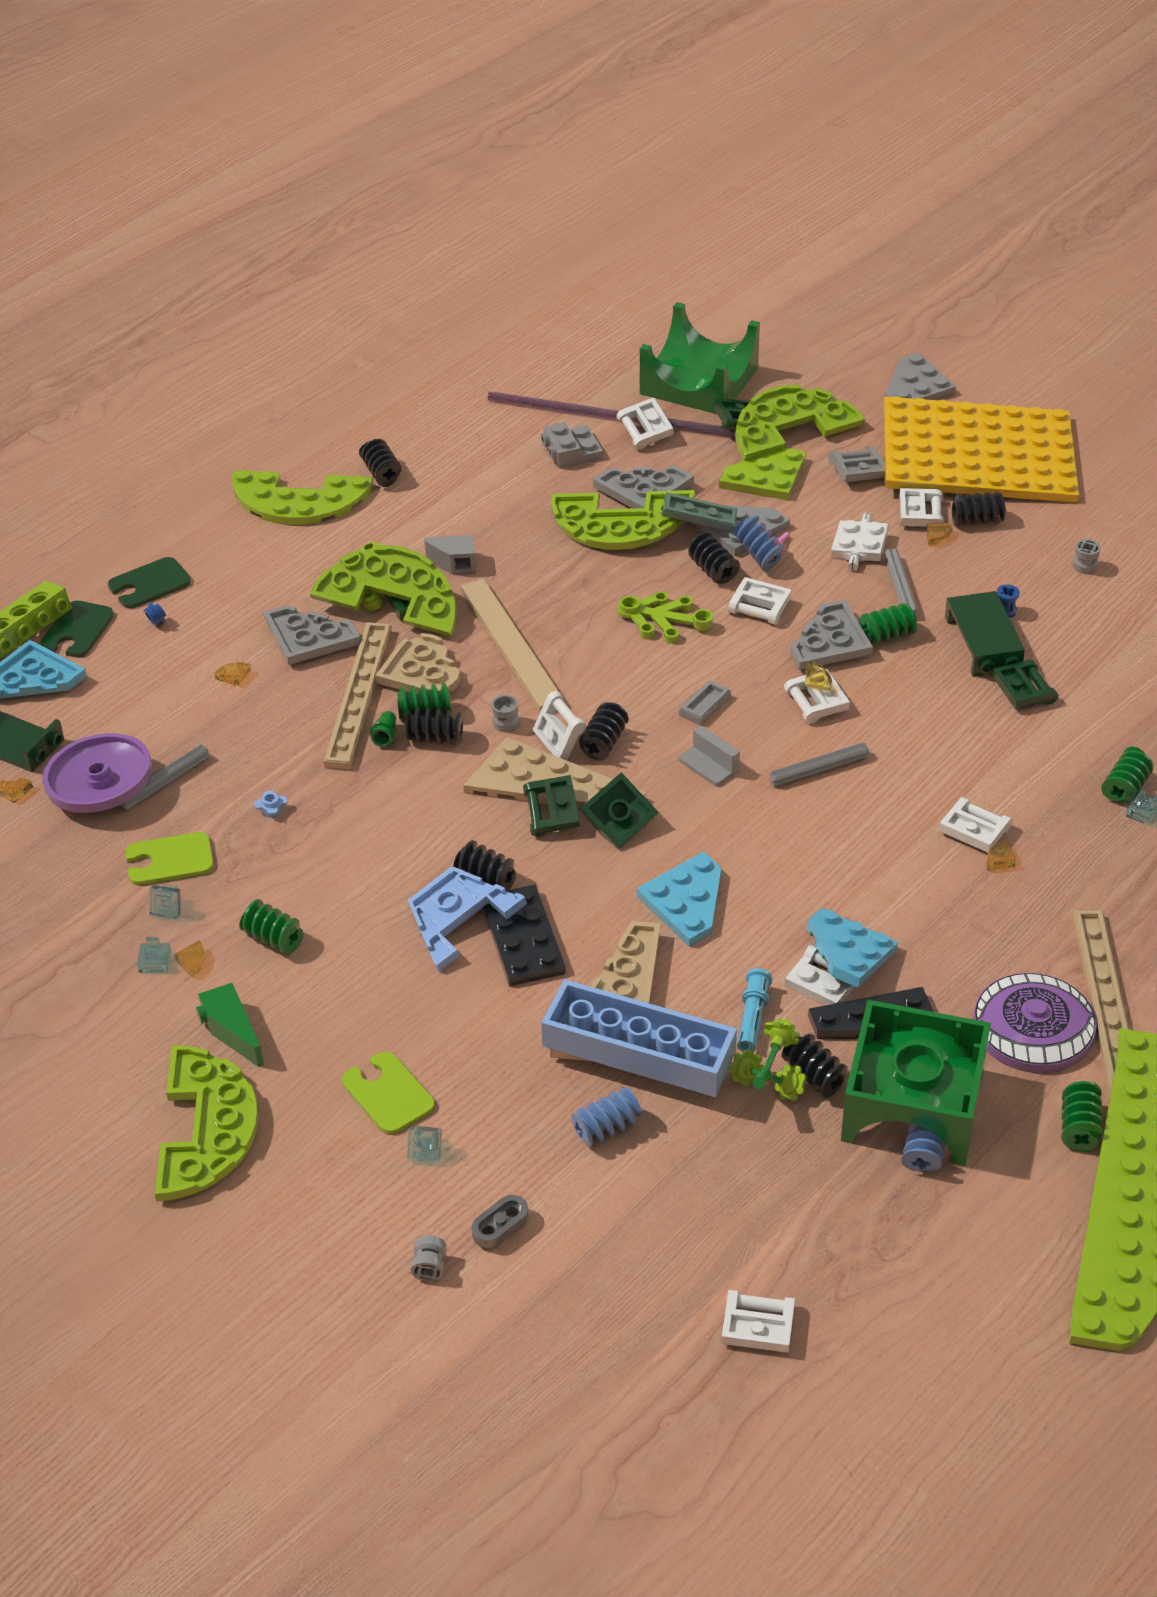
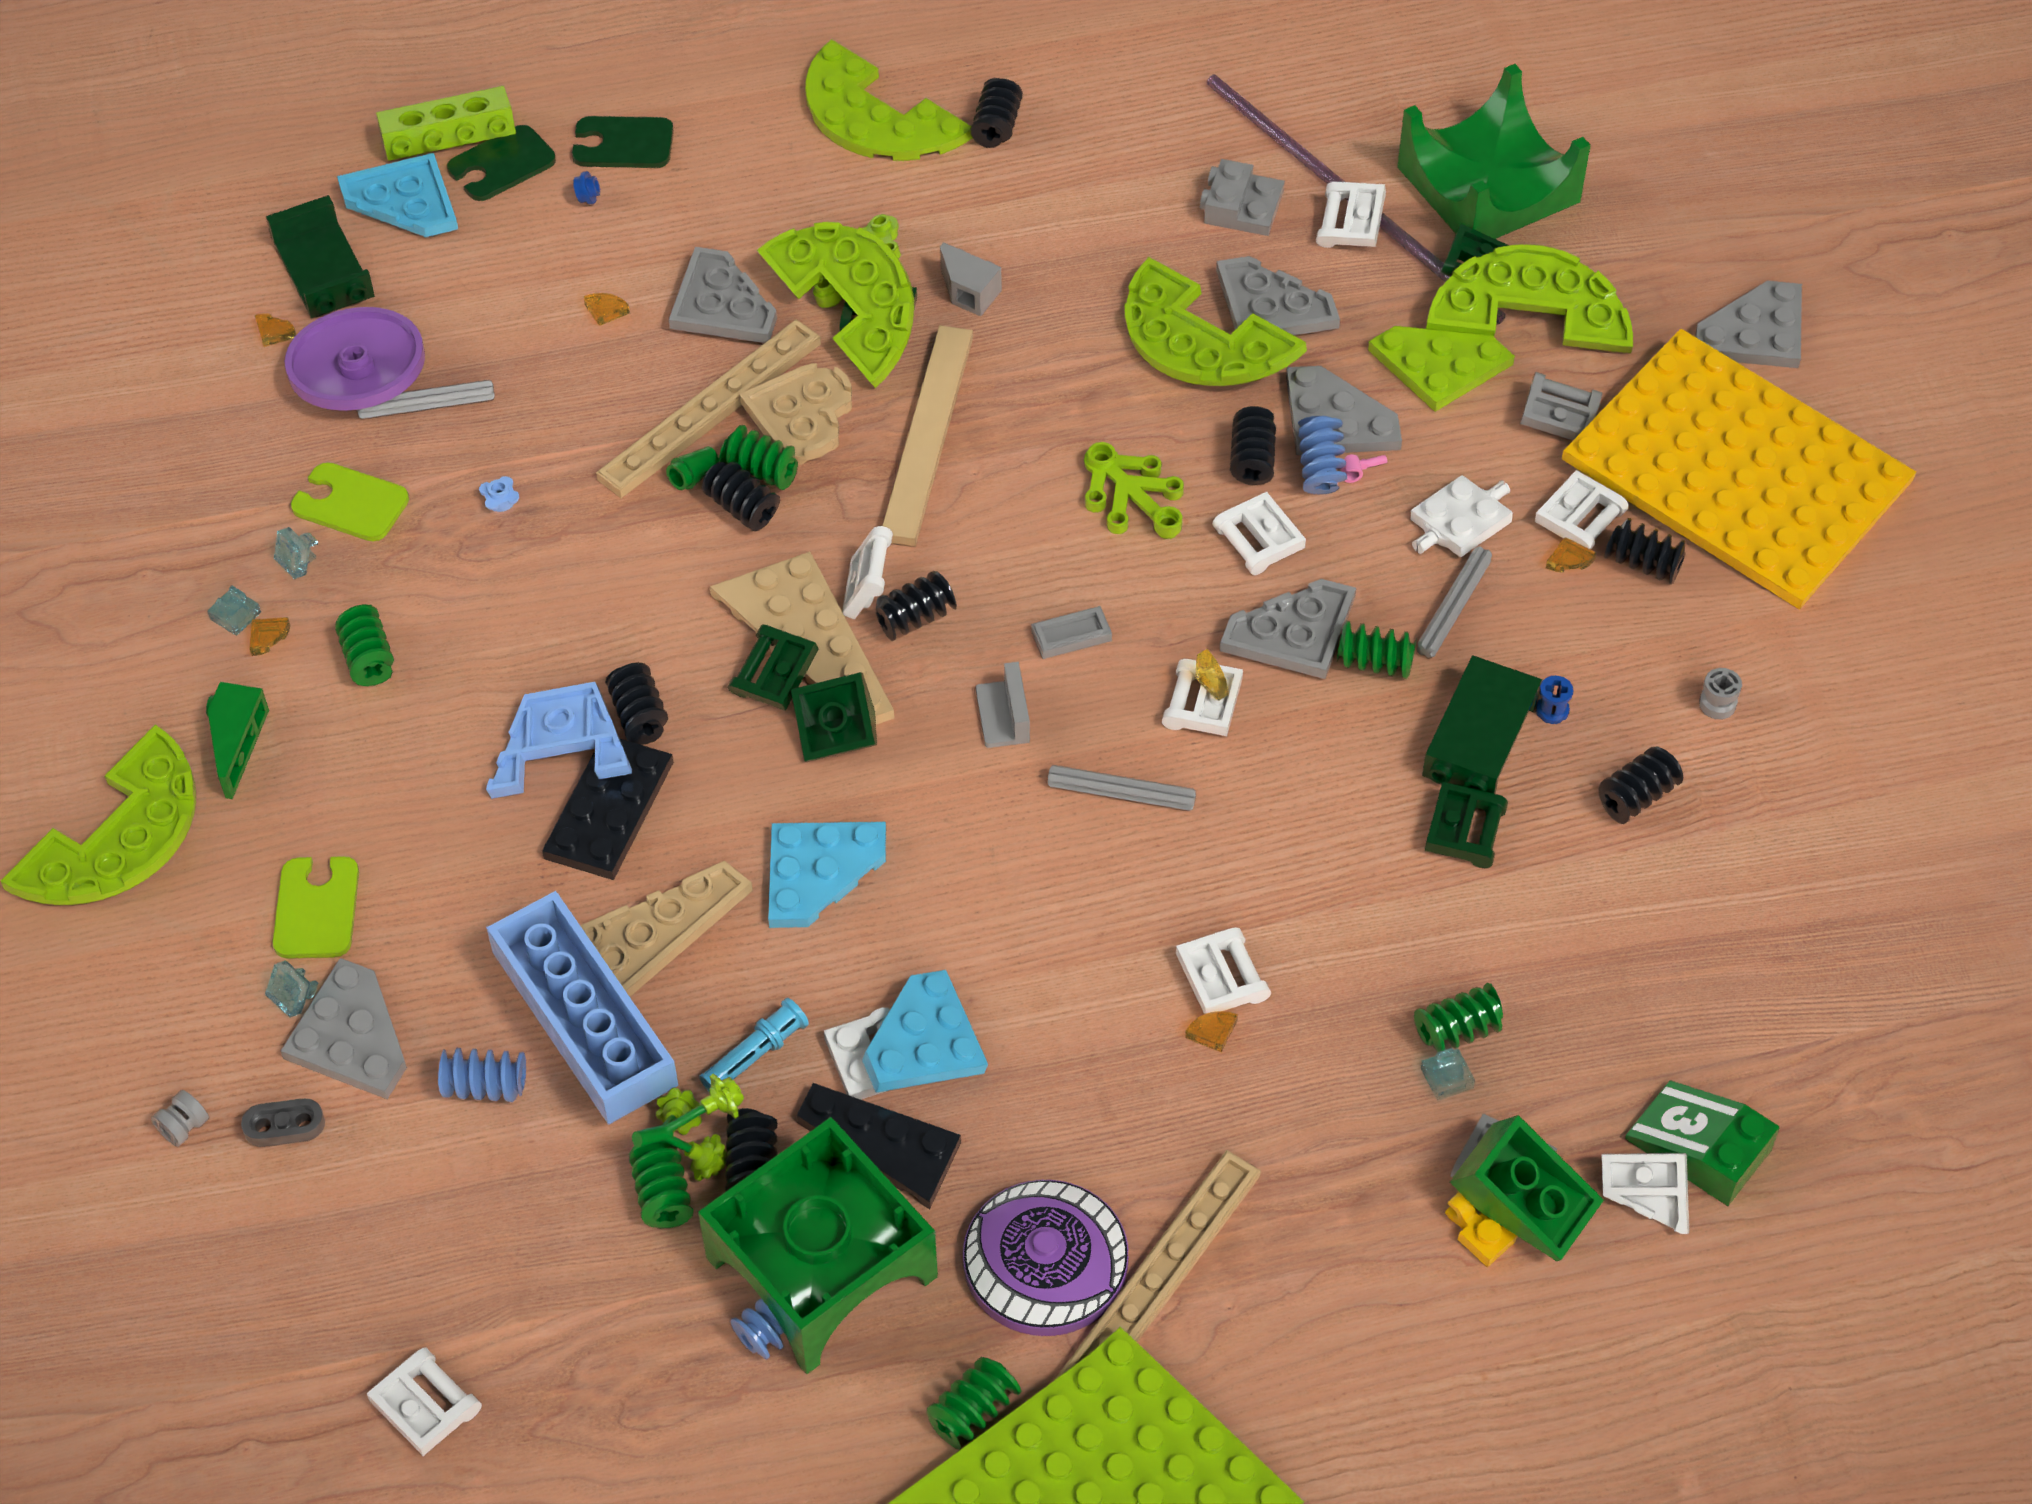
camera: 35 degrees right, 10 degrees up
(488, 1149) = (349, 1033): none -> light grey plate
(505, 713) = (833, 521): light grey wheel -> none
(699, 512) = (1285, 374): sand green tile -> none
(779, 1114) = (660, 1185): none -> green piece
(1094, 617) = (1640, 783): none -> black piece

